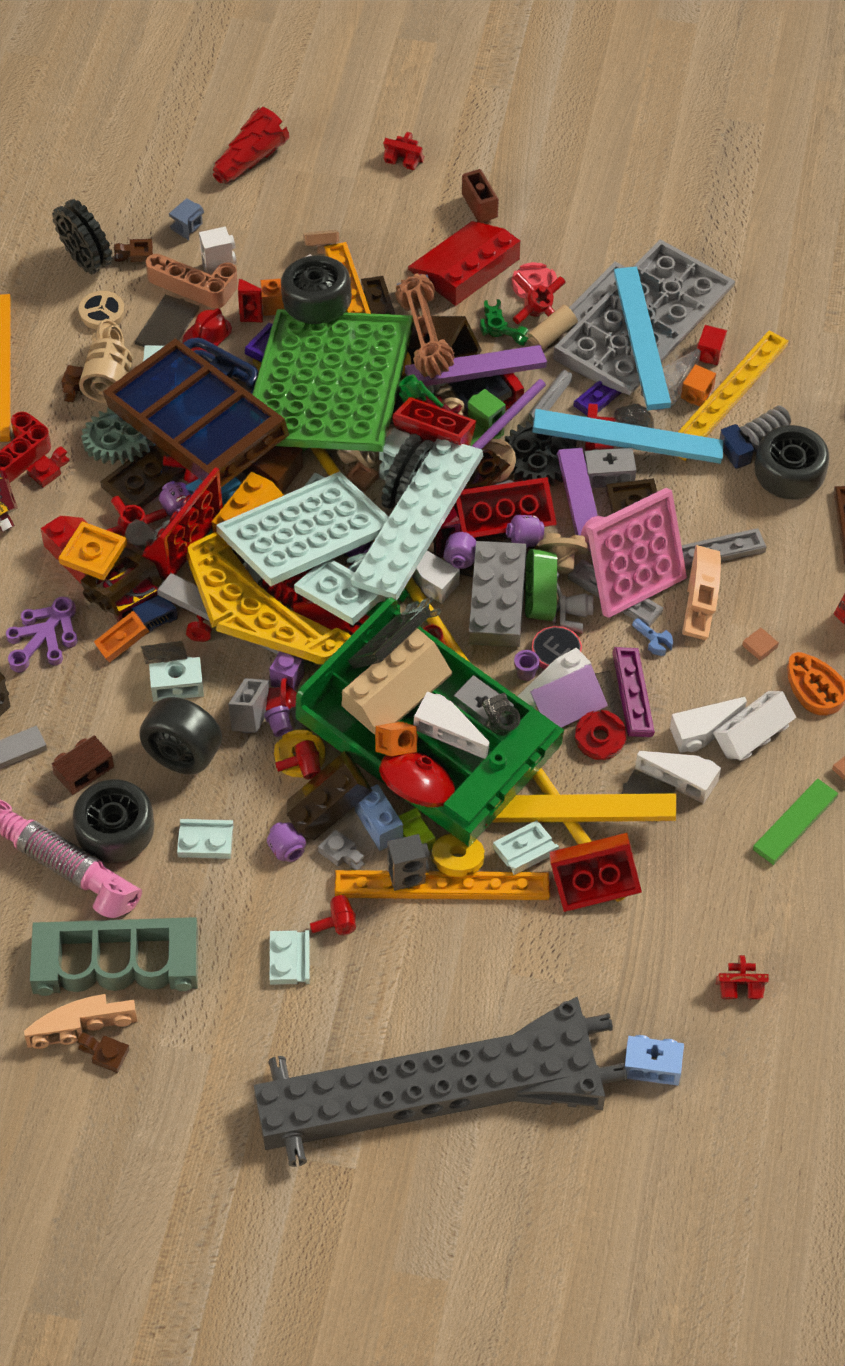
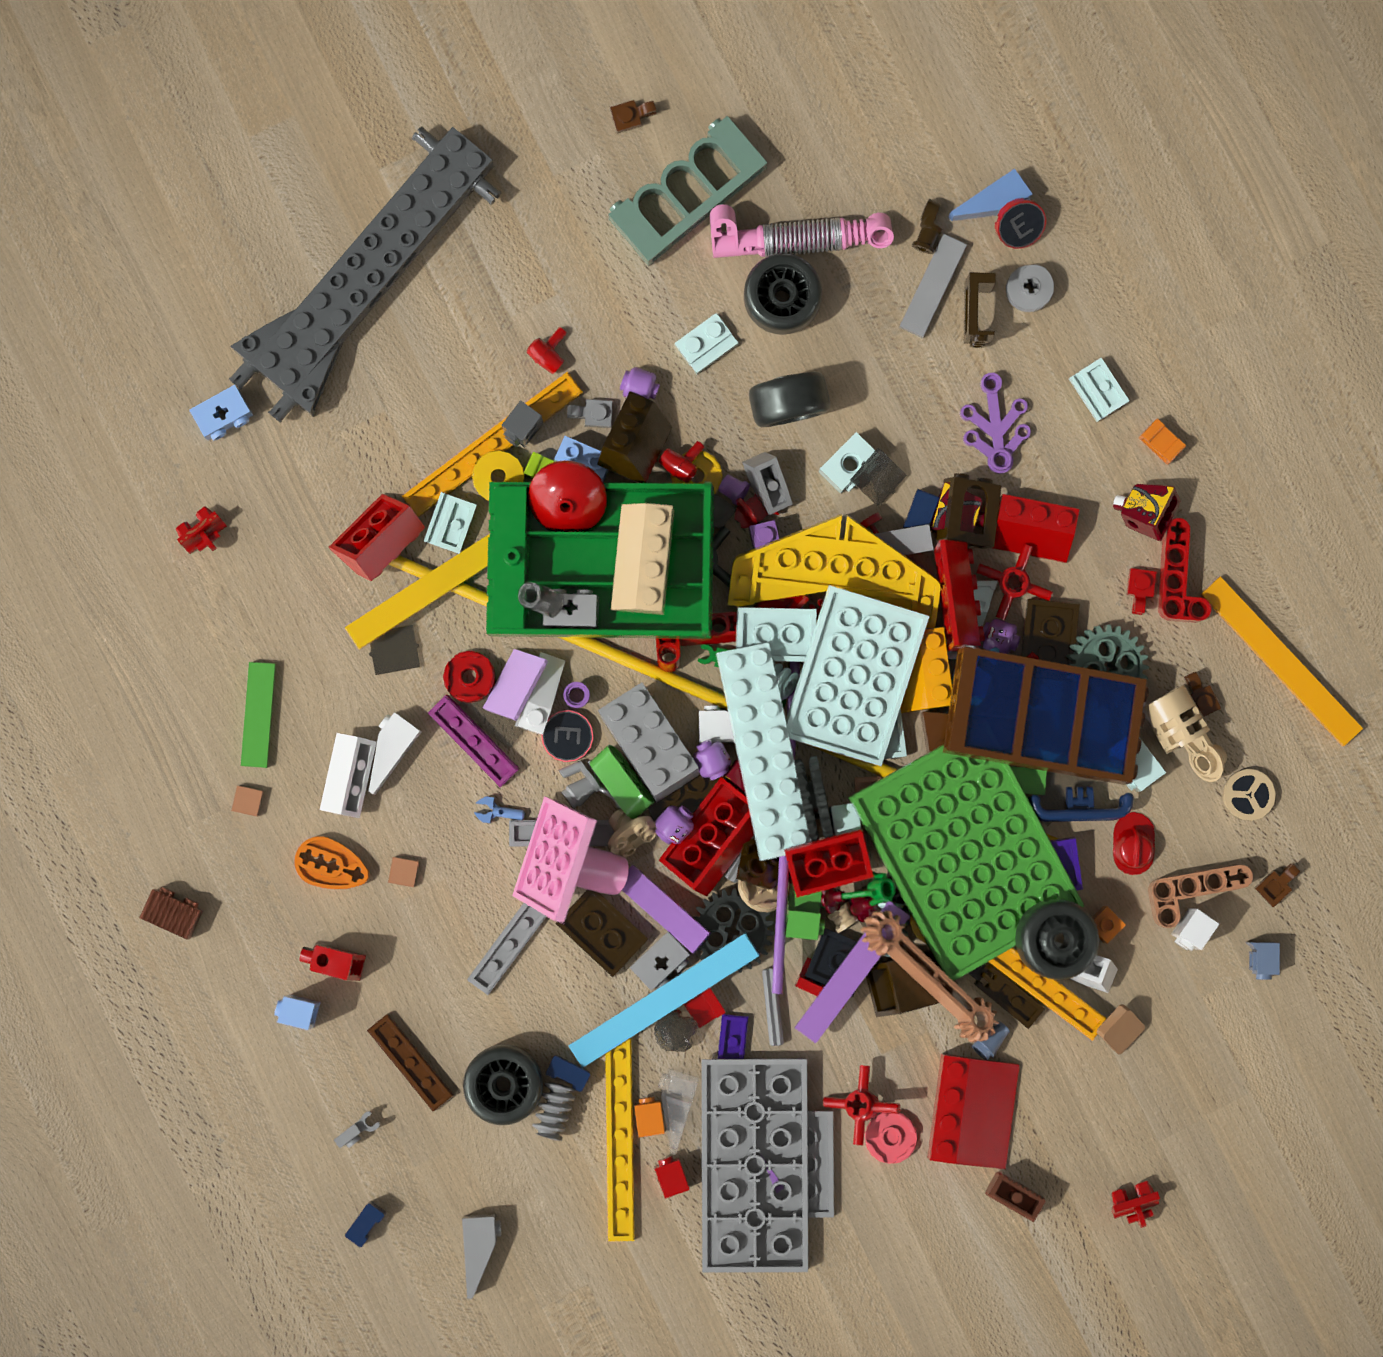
camera: 135 degrees right, 30 degrees up
(67, 1022) = (674, 113): light nougat slope -> none
(82, 236) = (1324, 842): pearl dark grey piece -> none
(82, 764) = (854, 329): copper brick -> none
(92, 550) = (1008, 511): light orange plate -> none
(121, 636) = (925, 465): orange plate -> none
(140, 534) = (987, 561): clear smoke piece -> none
(167, 322) = (1178, 826): clear smoke piece -> none
(250, 302) = (1116, 892): red slope -> none
(256, 140) = (1279, 1099): red cone -> none
(289, 957) = (559, 294): light aqua plate -> none
(393, 634) = (676, 596): clear smoke tile -> none
(396, 738) = (605, 511): orange brick -> none
(445, 722) = (579, 554): white slope -> none
(498, 327) = (883, 1054): green piece -> none
(552, 327) = (826, 1081): tan brick -> none
(642, 339) = (733, 1126): medium azure tile -> none
(686, 772) = (372, 689): white slope -> none
(703, 592) = (484, 885): light nougat slope -> none

